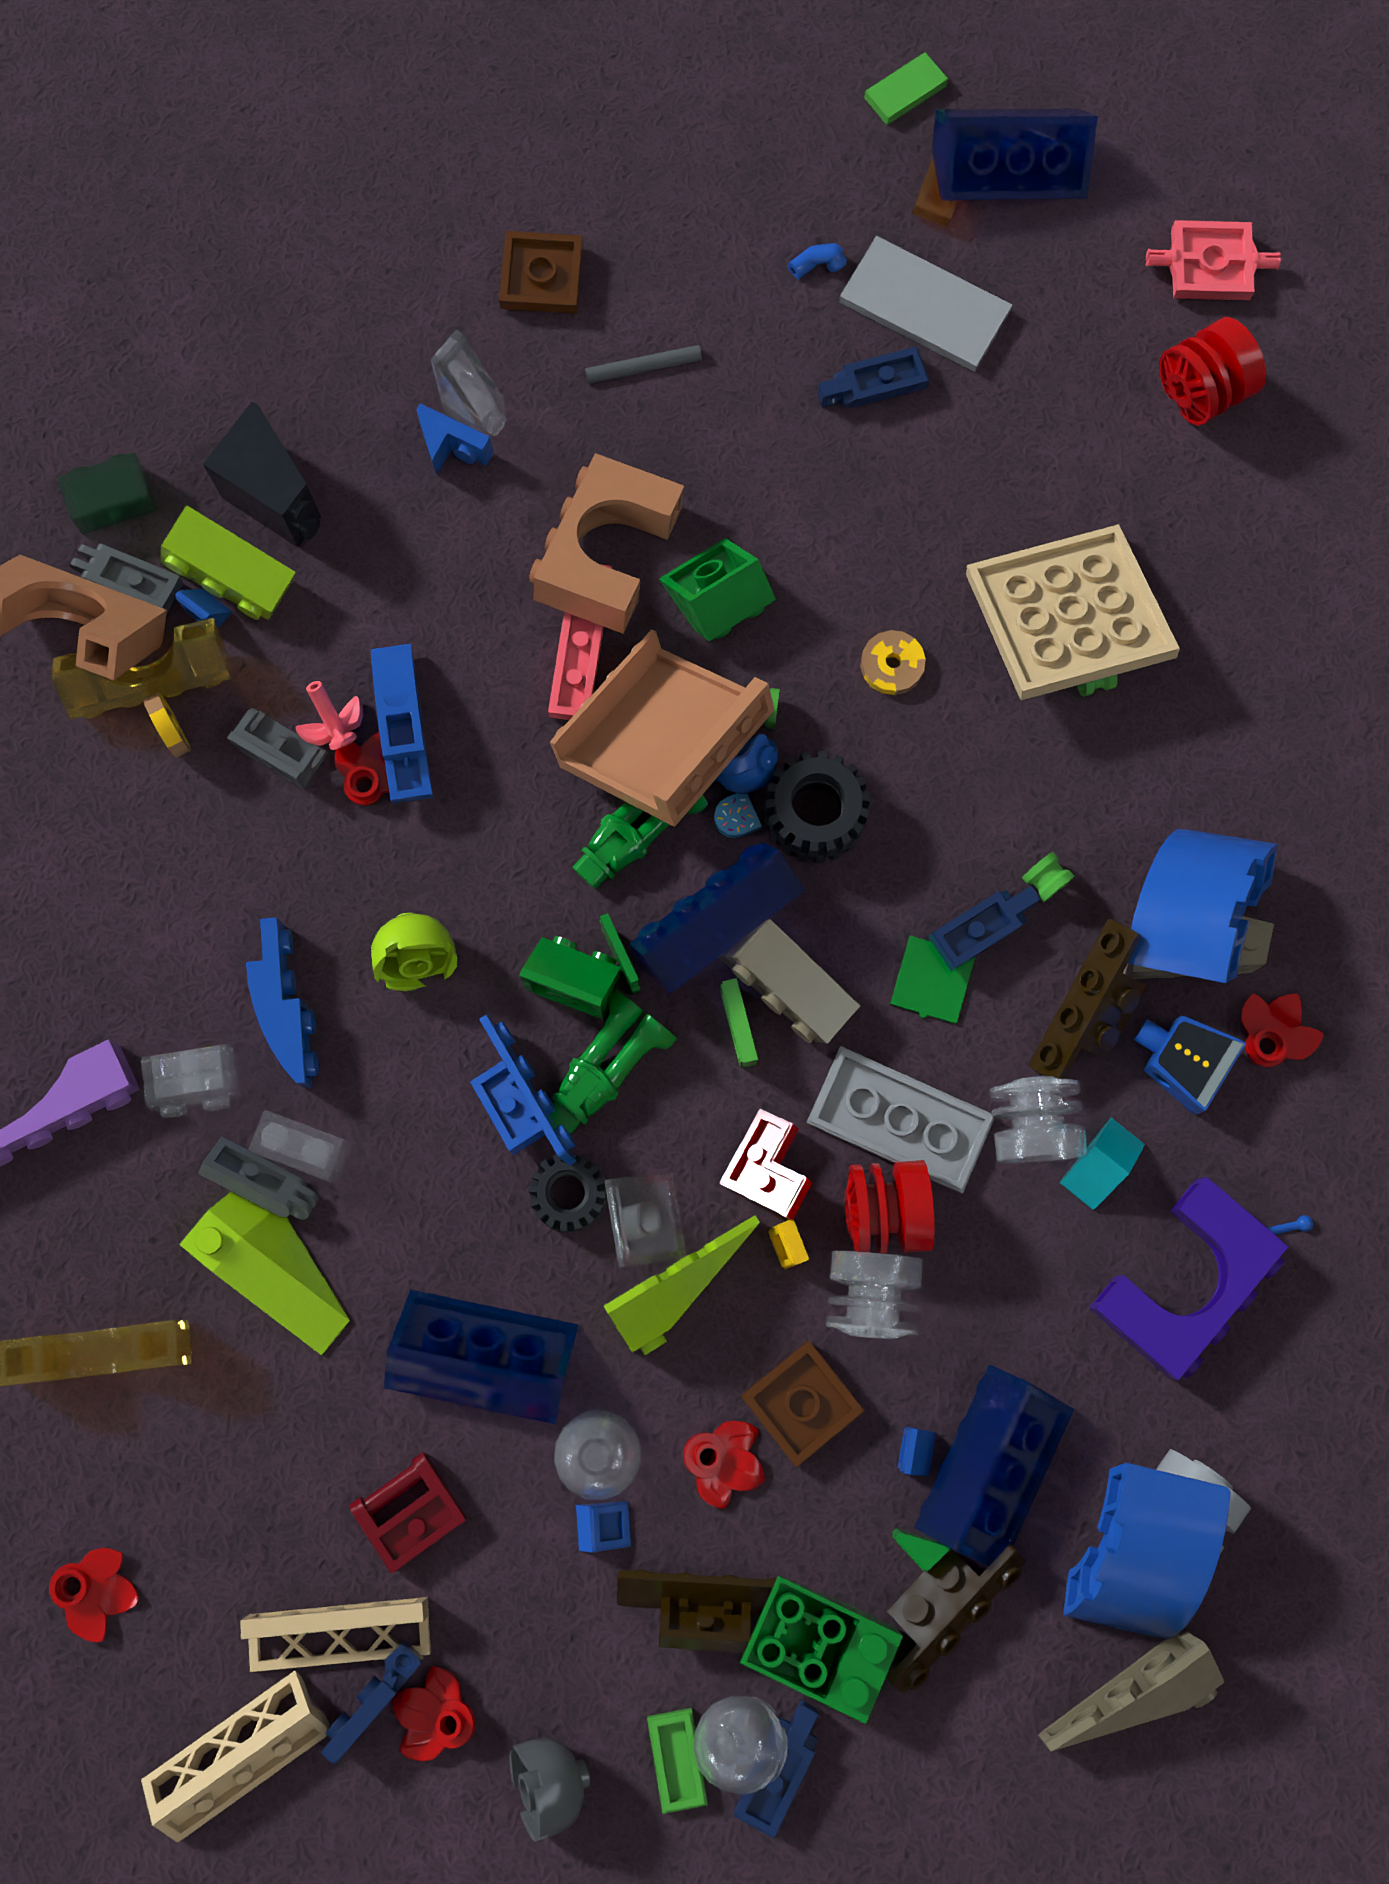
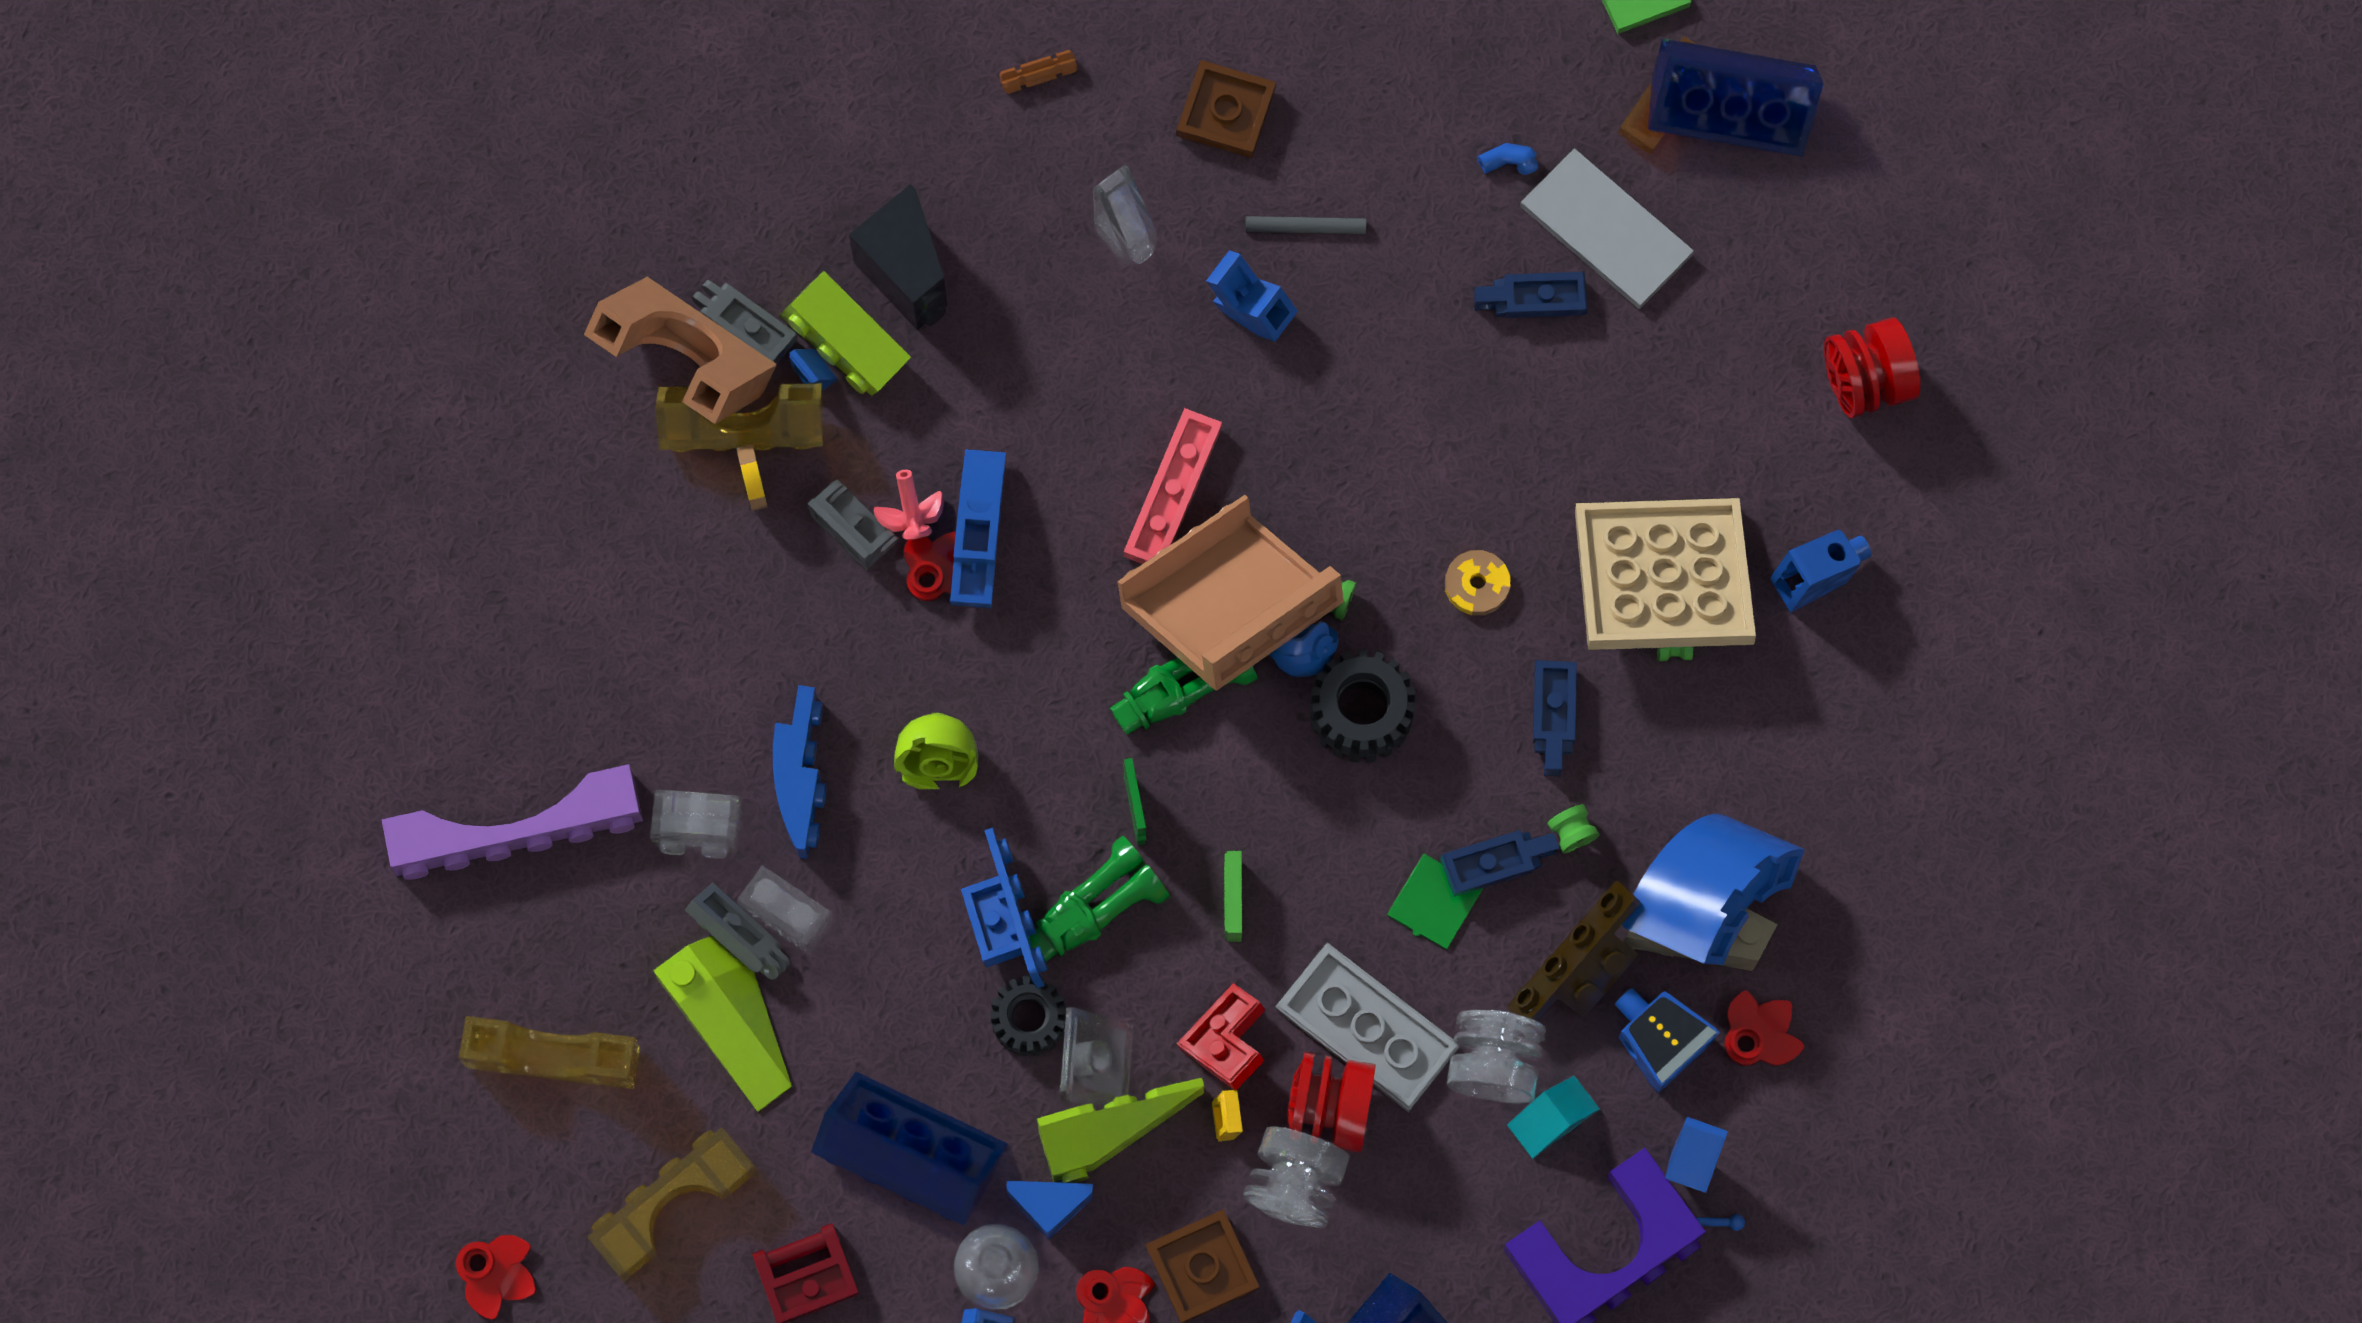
camera: 15 degrees right, 5 degrees down
(107, 493) = (745, 234): clear green brick -> none
(220, 1522) = (712, 1167): none -> clear yellow arch
(354, 278) = (1038, 71): none -> dark orange axle
(447, 434) = (1090, 252): blue slope -> none
(570, 976) = (1082, 812): green slope -> none
(604, 495) = (1233, 350): nougat arch -> none
(618, 440) = (1249, 300): none -> blue brick
(634, 1379) = (1049, 1203): none -> blue slope
(715, 916) = (1234, 786): clear blue slope -> none
(719, 589) = (1322, 469): green slope -> none
(736, 816) = (1283, 697): dark azure tile -> none
(790, 982) = (1291, 866): dark tan wedge -> none
(999, 769) = (1554, 712): none -> dark blue hinge
(1212, 260) = (1911, 251): coral plate -> none
(1220, 564) = (1822, 565): none -> blue torso
(1258, 1173) = (1695, 1154): none -> blue slope

